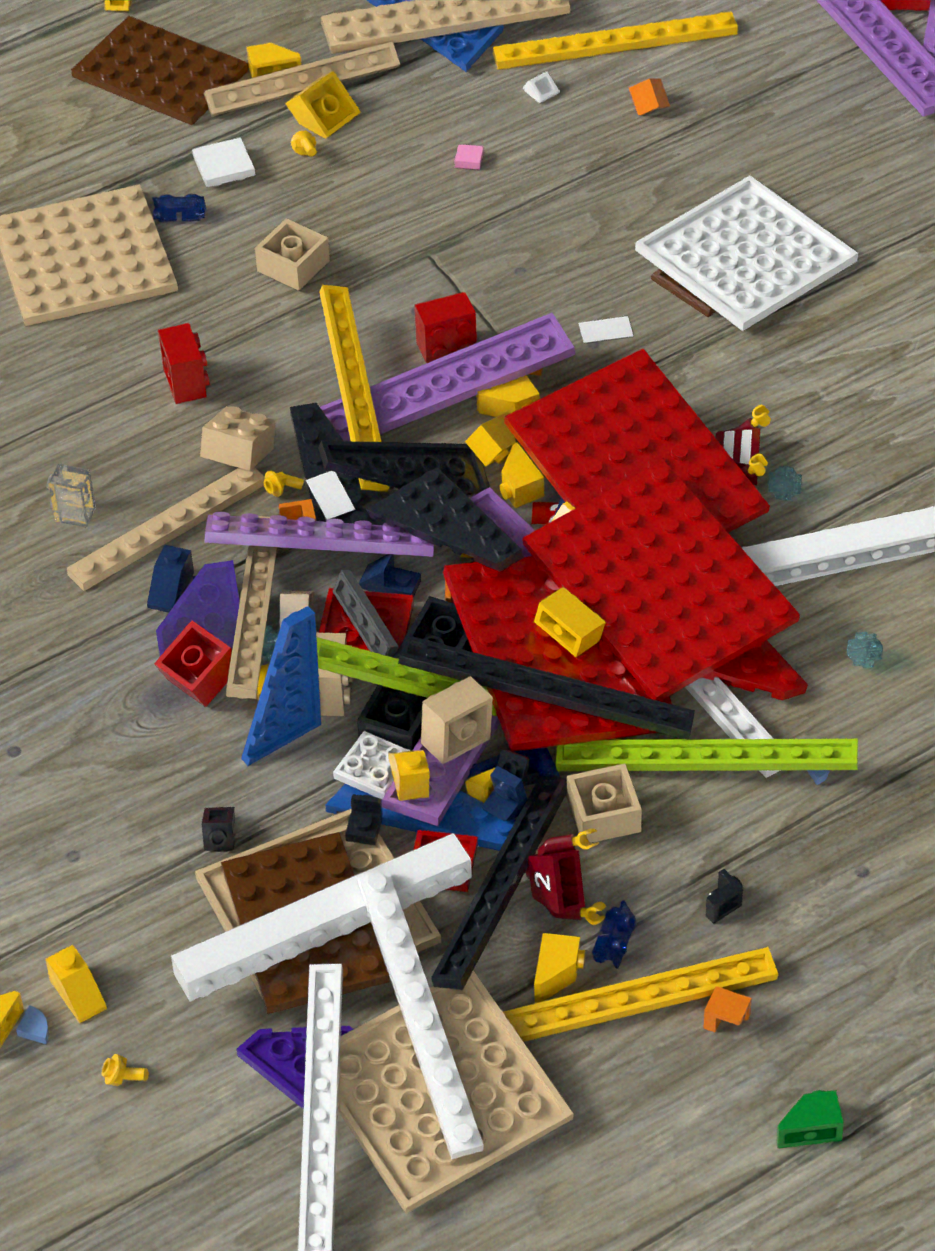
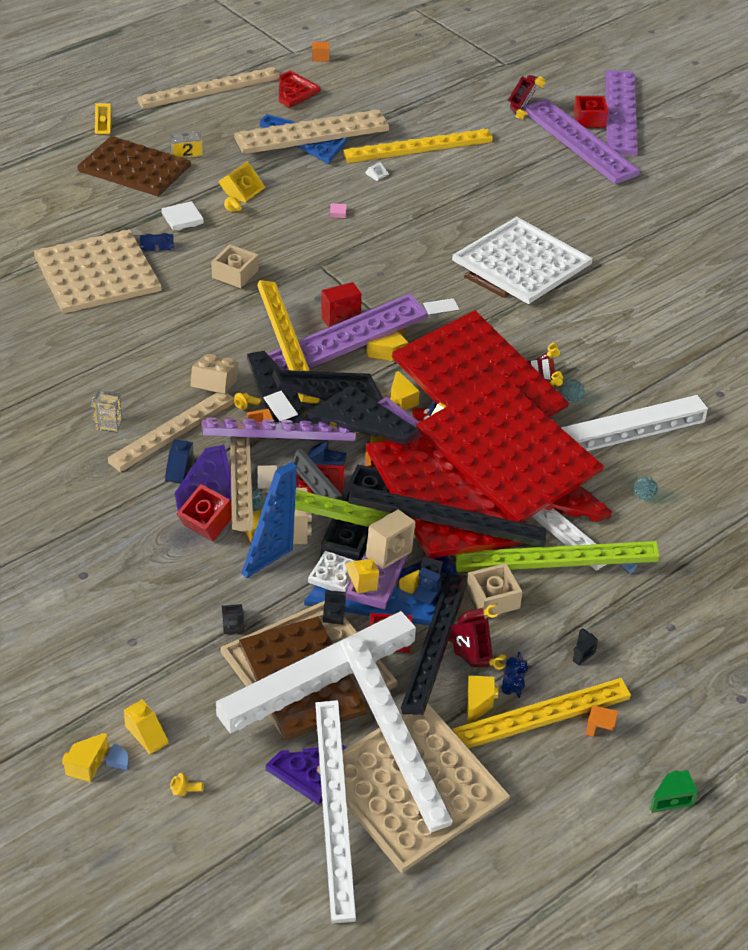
camera: 10 degrees left, 5 degrees down
(183, 363) = (172, 330): red brick -> none
(241, 32) = (186, 144): none -> brick
(270, 58) = (206, 160): yellow slope -> none
(295, 79) = (222, 168): tan plate -> none
(492, 441) = (382, 370): yellow slope -> none
(569, 621) = (455, 475): yellow brick -> none
(649, 96) = (445, 174): orange panel -> none

